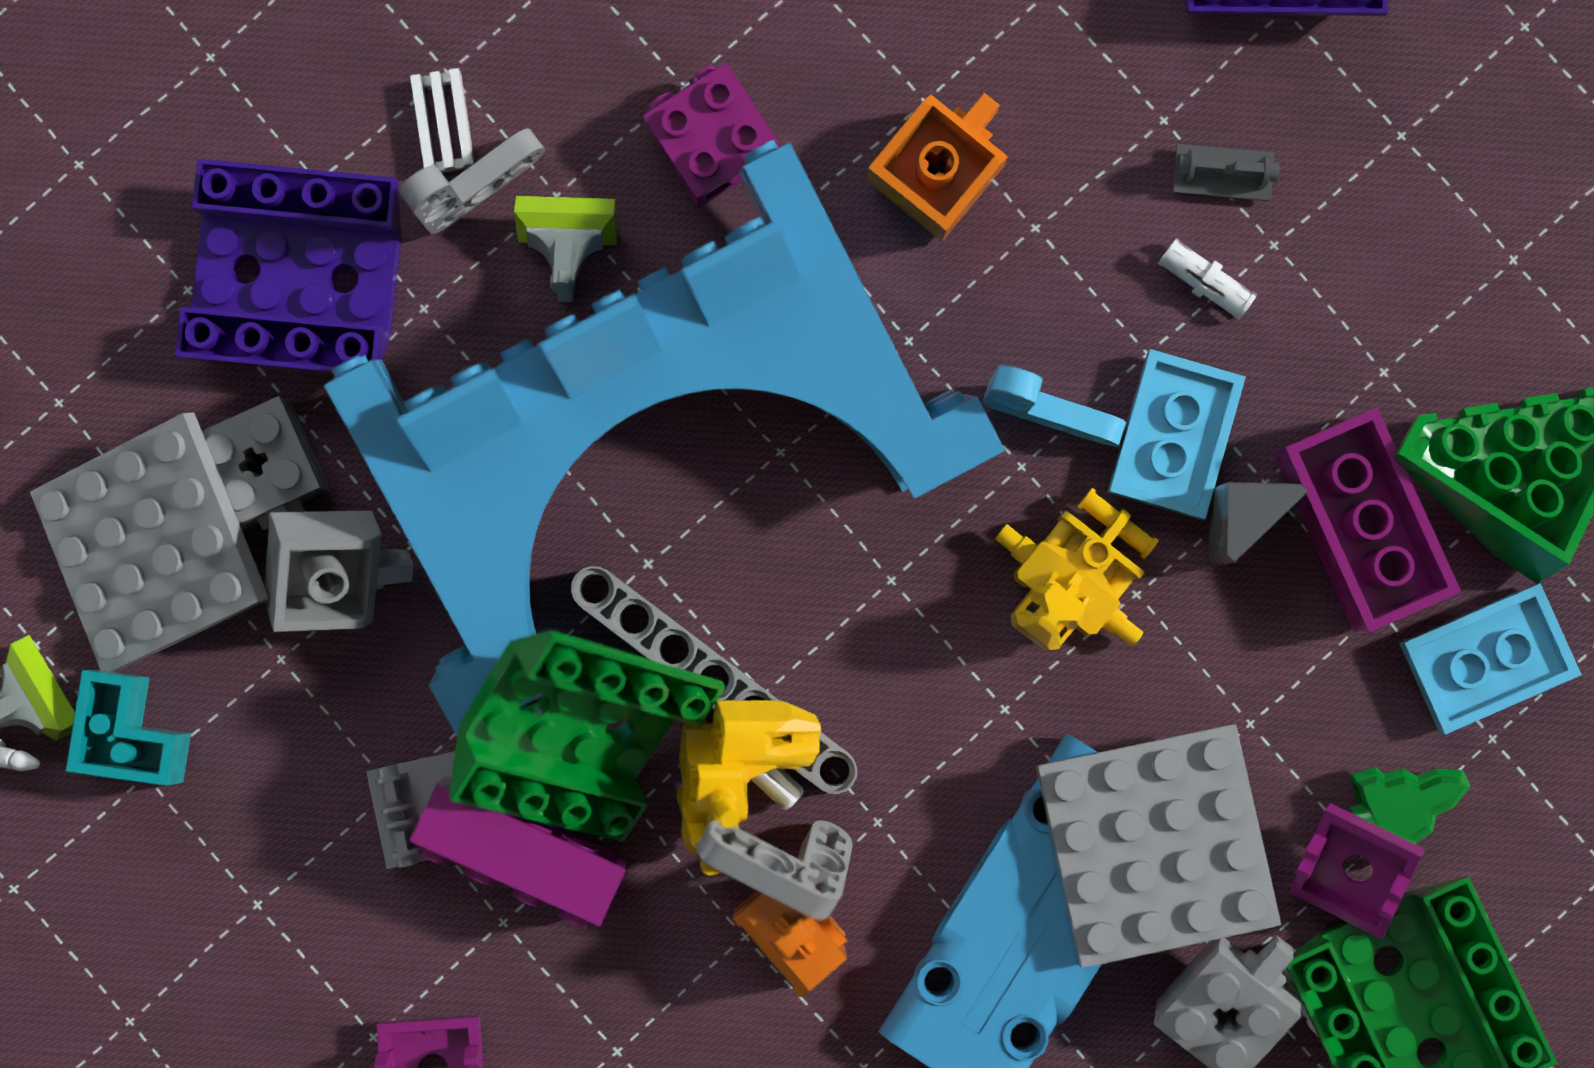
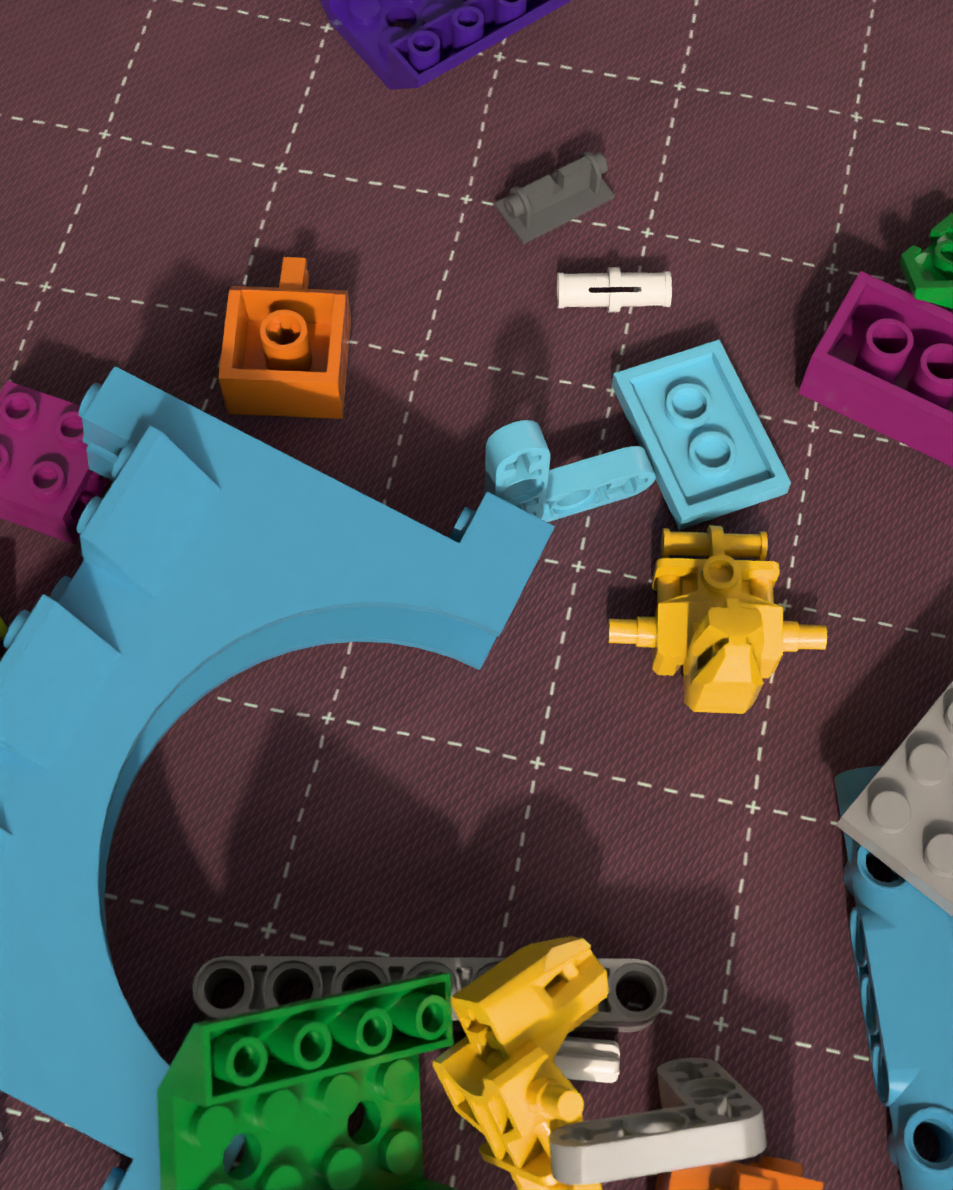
camera: 35 degrees left, 20 degrees down
(1243, 514) = (824, 445): dark grey slope -> none

